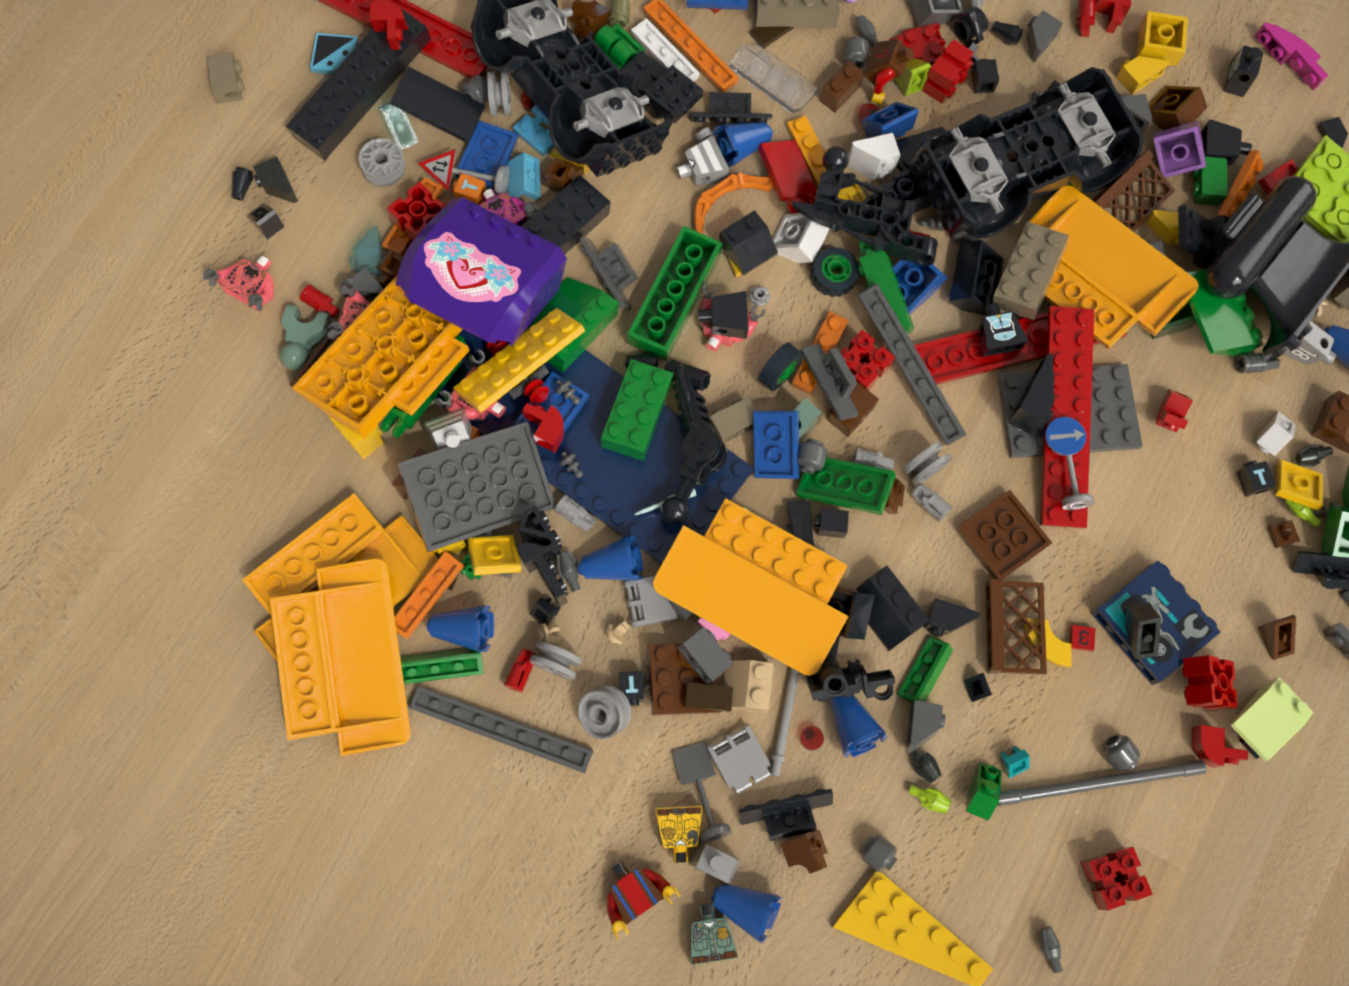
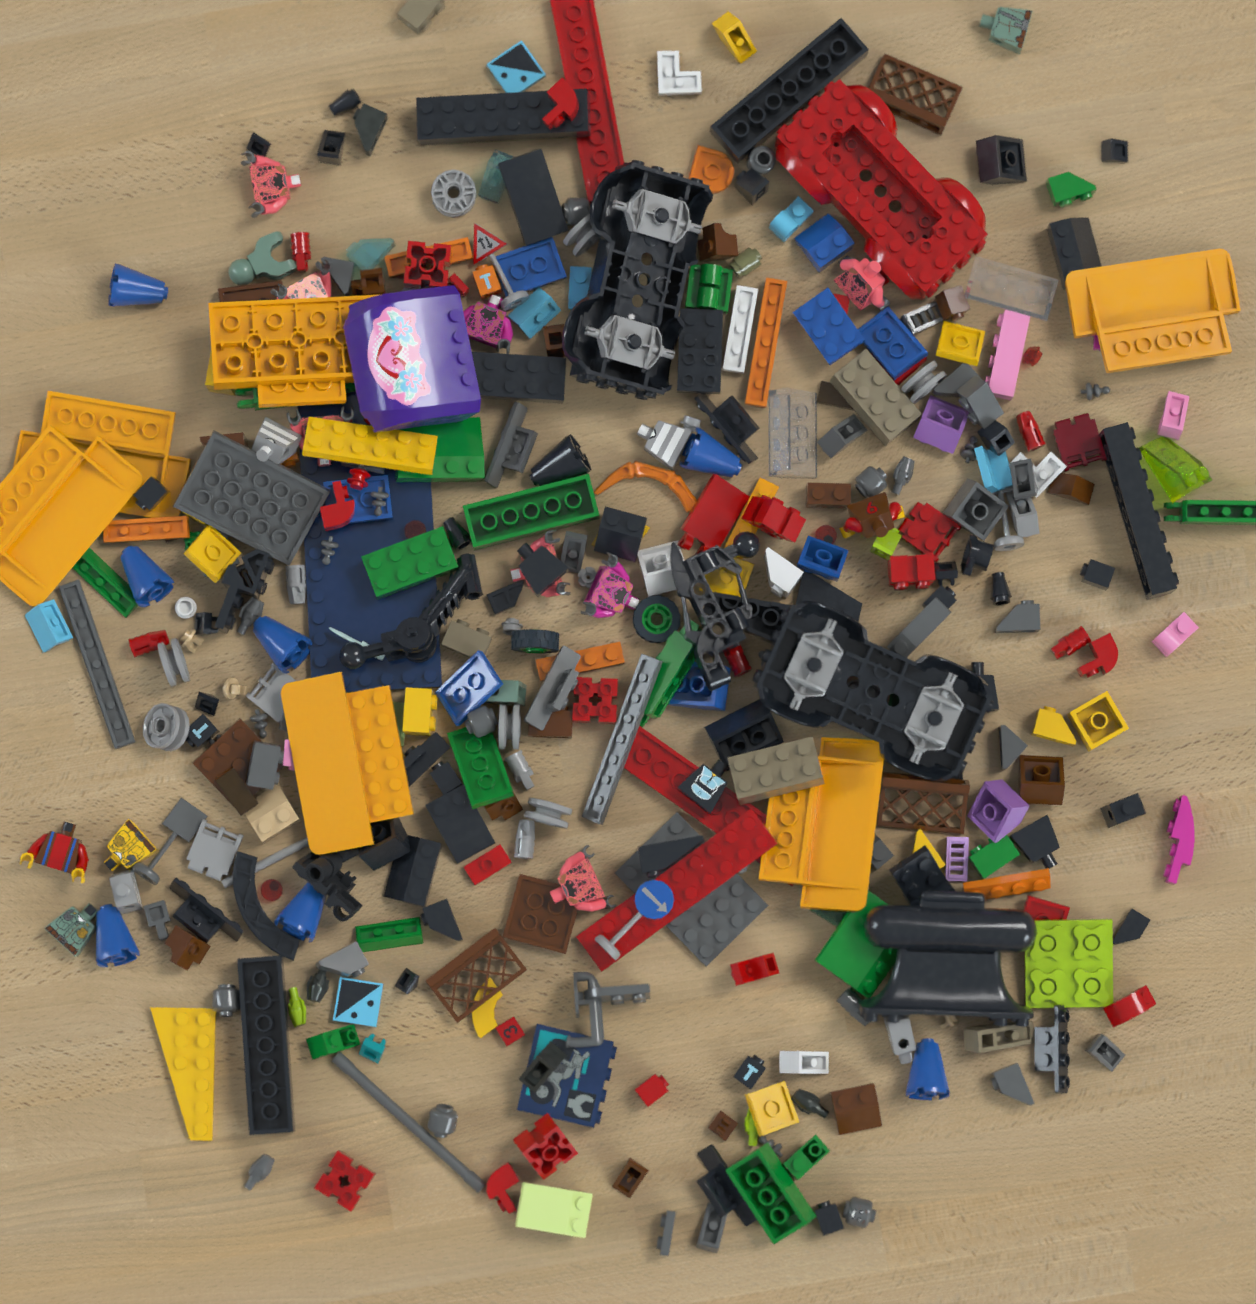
camera: 55 degrees right, 10 degrees up
(211, 263) = (258, 145): none -> black slope
(227, 446) = (134, 288): none -> blue cone
(401, 565) = (150, 494): none -> black brick
(433, 743) = (48, 625): none -> medium azure panel
(518, 617) = (185, 607): none -> white plate
(611, 389) = (414, 529): none -> clear red tile
(612, 664) = (207, 703): none -> black slope
(656, 242) = (561, 463): none -> black cone
(665, 634) = (259, 717): none -> dark grey hair
(723, 367) = (505, 597): none -> black tile
(729, 281) = (574, 550): none -> dark grey slope
(750, 379) = (510, 625): none -> light grey plate
(758, 854) = (158, 915): none -> dark grey plate
(763, 496) = (419, 711): none -> yellow brick
(784, 284) = (609, 590): none -> torso
(804, 48) = (842, 436): none -> dark grey slope
(820, 768) = (252, 911): none -> black tile
(830, 127) = (774, 518): none -> red brick
(835, 436) = (509, 726): none -> light grey wheel
(878, 541) = (460, 824): none -> black slope
(928, 548) = (487, 864): none -> red plate
(948, 851) = (266, 1045): none -> black brick
(963, 743) = (358, 1002): none -> tile
(996, 91) = (919, 628): none -> dark grey slope
(1005, 484) = (581, 884): none -> torso
(1105, 558) = (594, 997): none -> dark grey plate
(1190, 199) = (957, 840): none -> lavender slope
(1216, 563) = (652, 1089): none -> red brick

